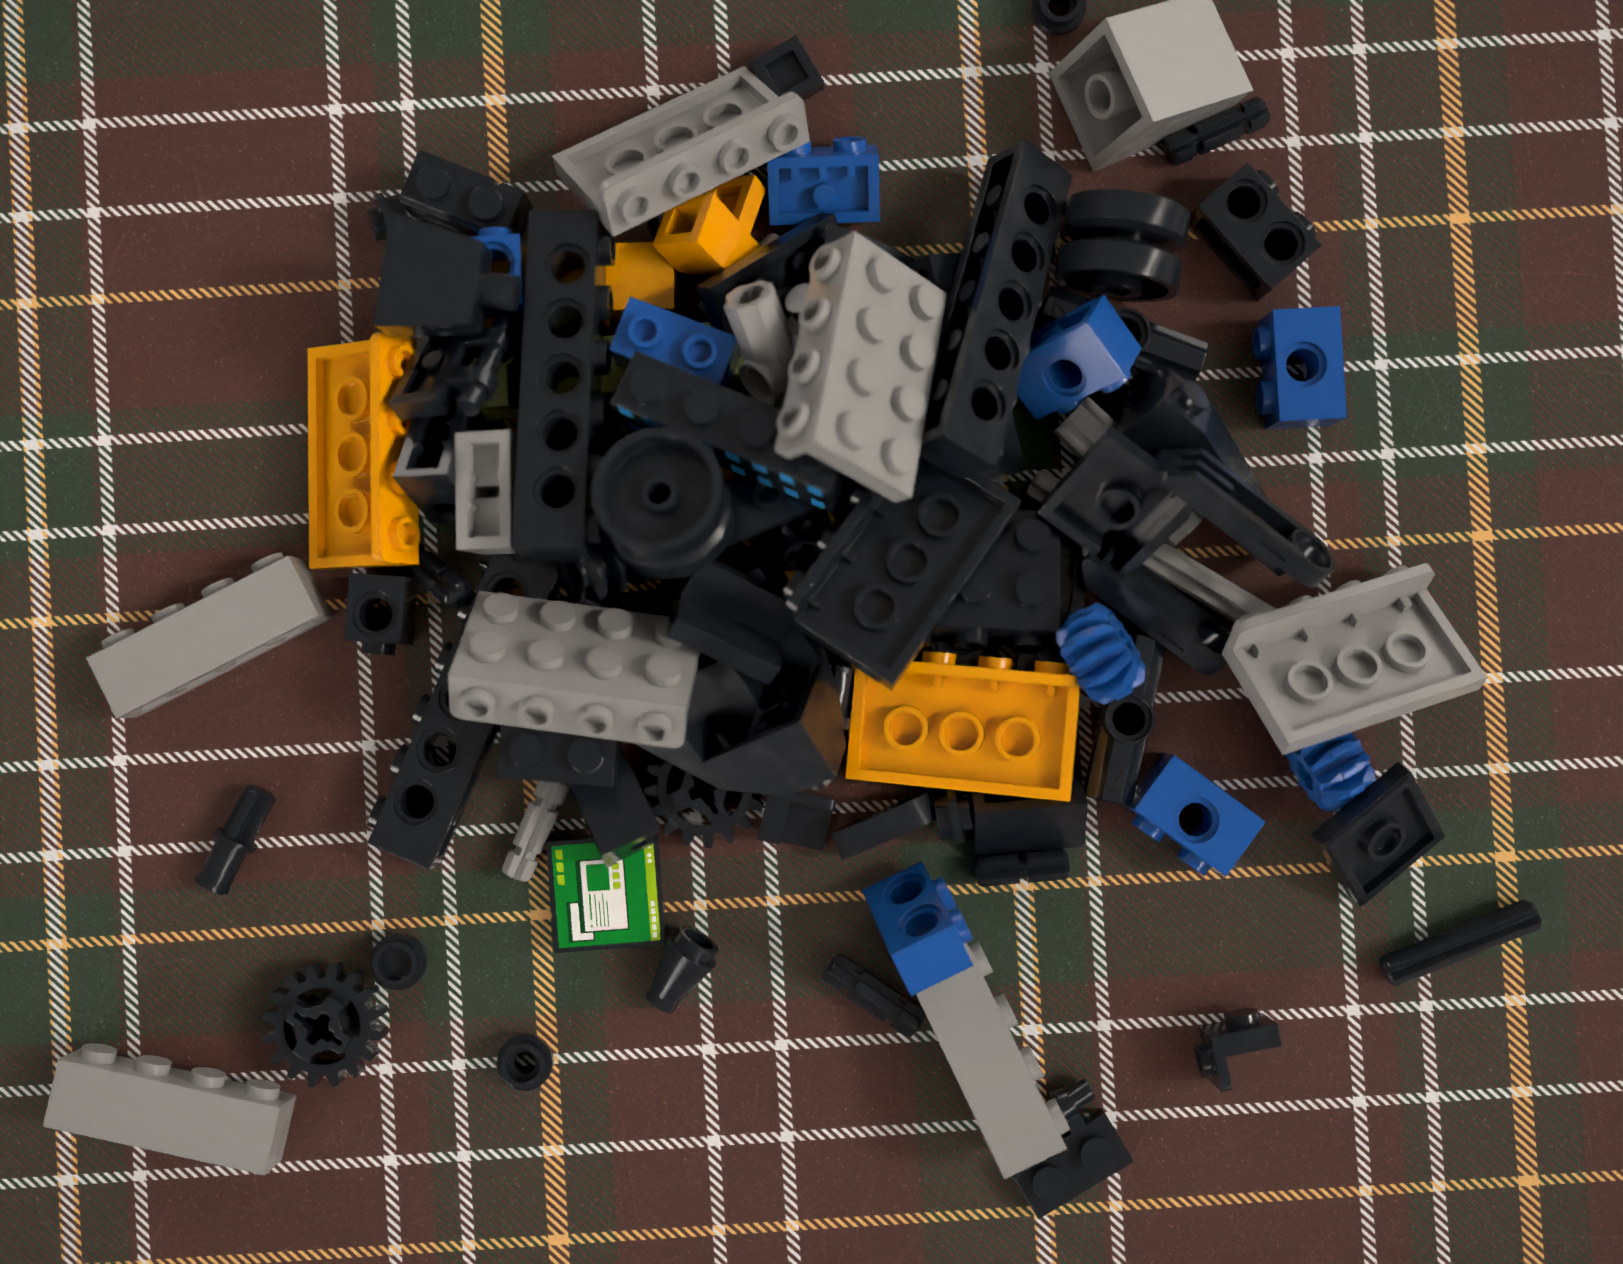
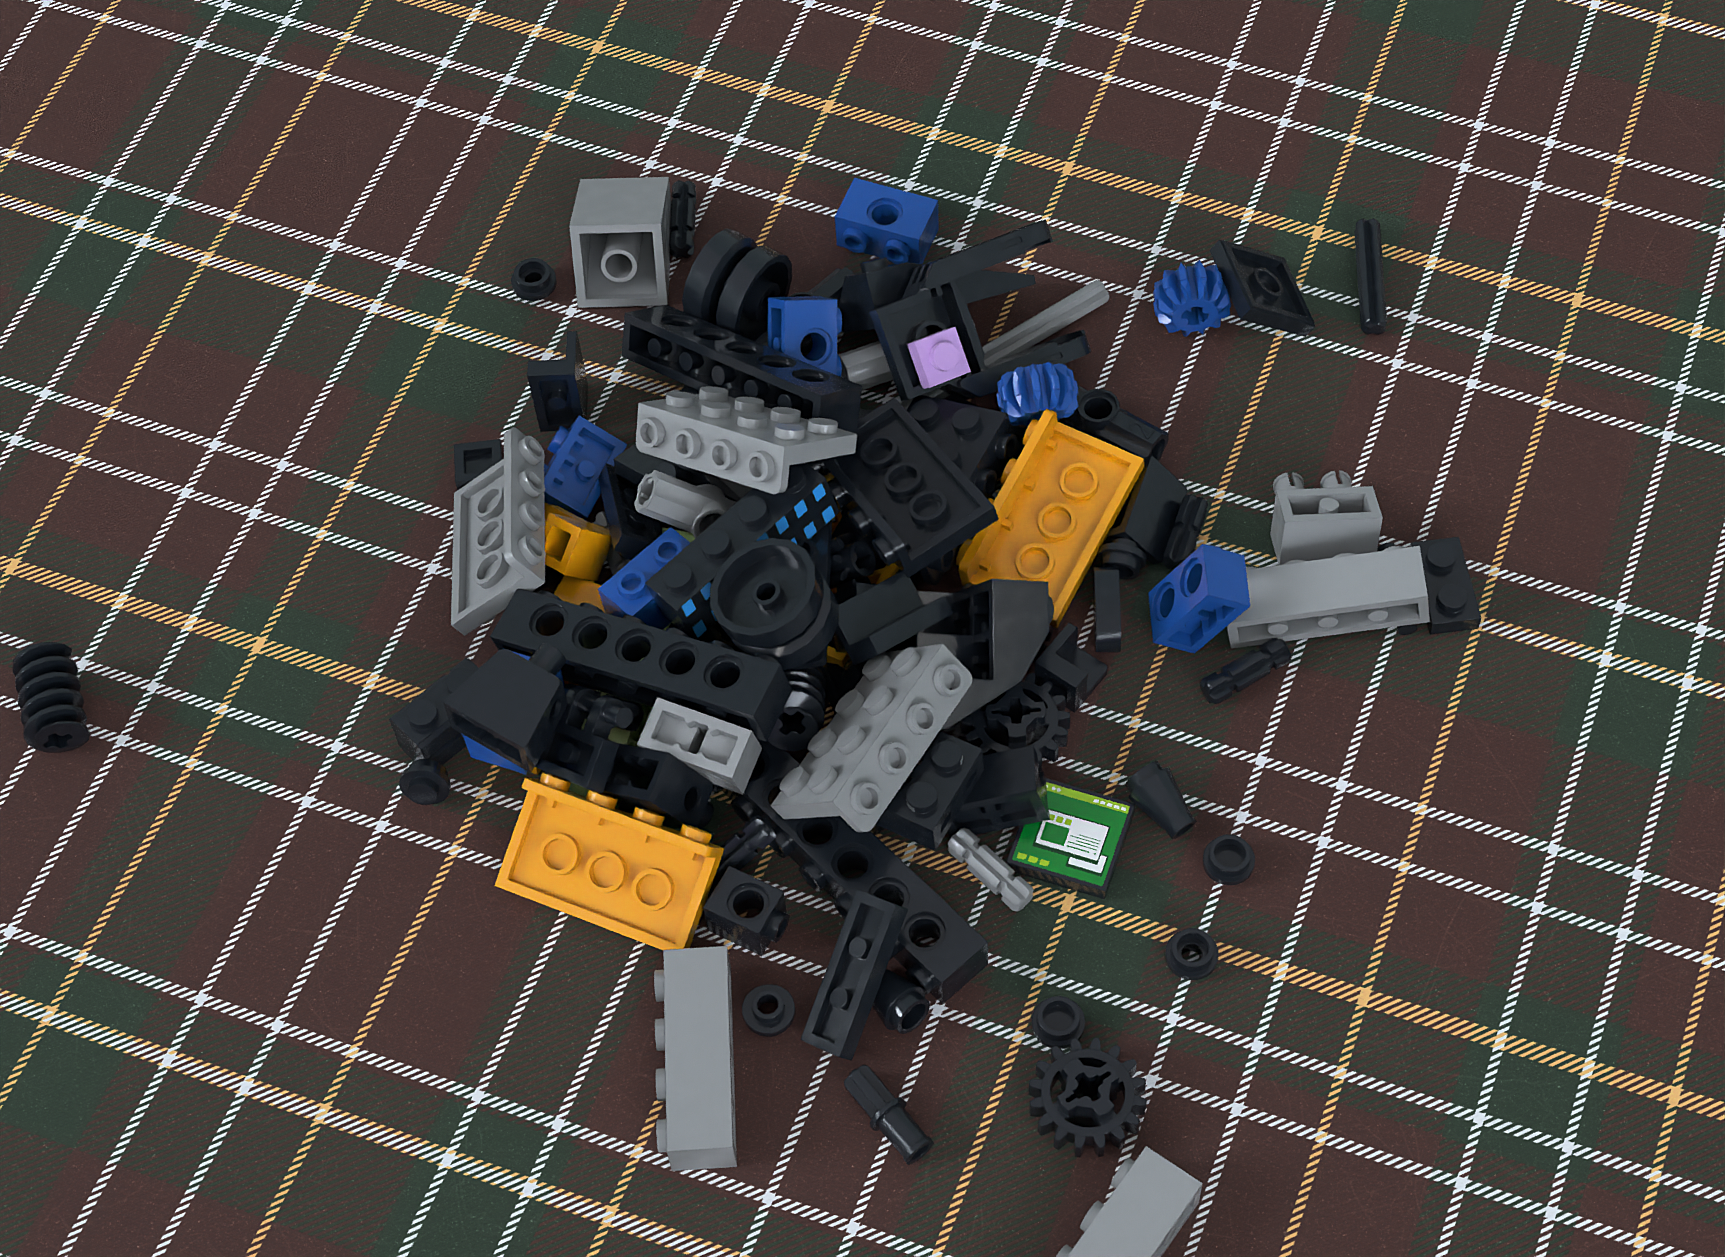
camera: 60 degrees left, 30 degrees down
(309, 683) = (768, 1024): none -> black plate
(342, 754) = (854, 975): none -> black plate
(354, 790) = (900, 1003): none -> black cone
(644, 1059) = (1228, 860): none -> black plate
(906, 129) = (559, 387): none -> black panel
(1077, 1020) = (1323, 519): none -> light grey brick
(1096, 526) = (938, 357): none -> lavender plate
(1225, 824) = (1173, 400): blue brick -> none
(1239, 1034) = (1388, 450): black bracket -> none
(1241, 241) = (774, 213): black brick -> none
(1350, 658) = (1116, 255): light grey bracket -> none

